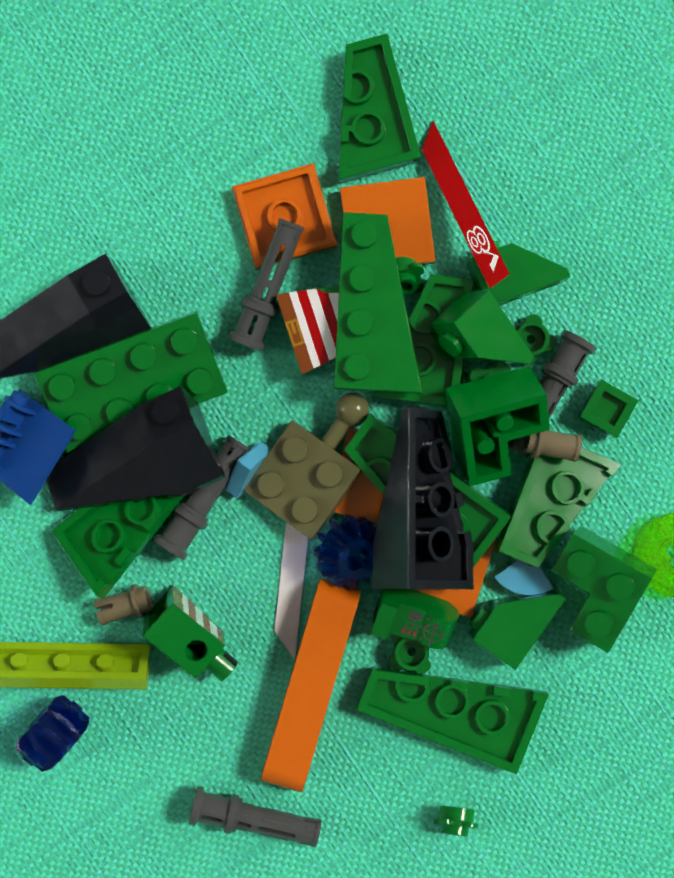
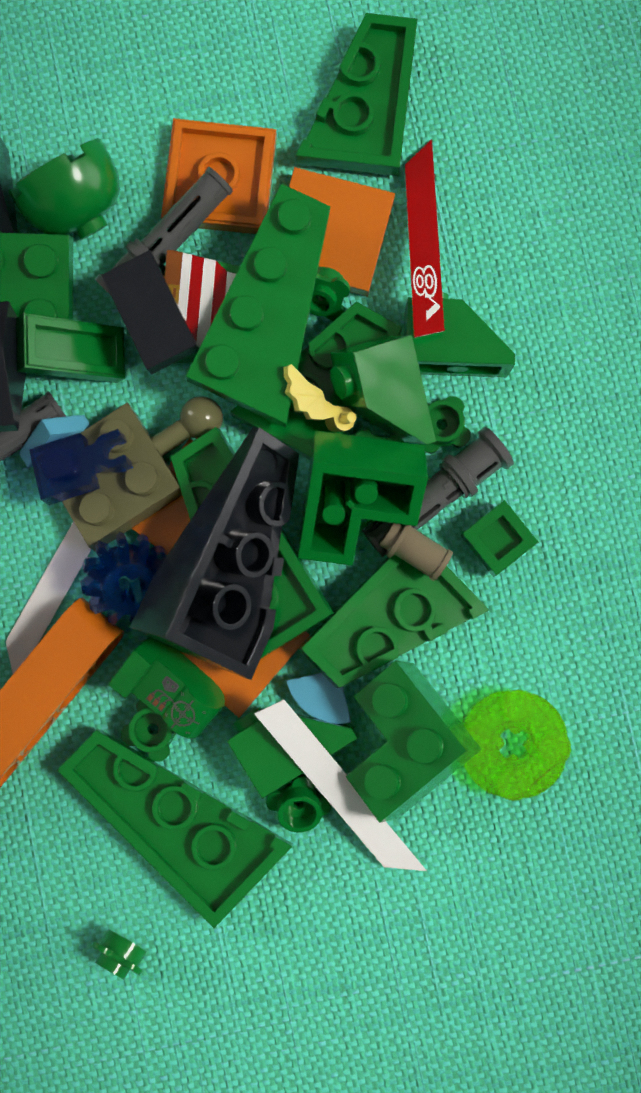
camera: 20 degrees right, 5 degrees down
(182, 278) = (70, 192): none -> green cylinder
(234, 398) = (70, 348): none -> green tile
(273, 487) = (71, 465): none -> clear blue plate
(286, 349) = (150, 312): none -> black tile
(433, 368) = (312, 402): none -> light yellow piece
(541, 662) = (298, 816): none -> green plate
(563, 639) = (334, 786): none -> white sticker

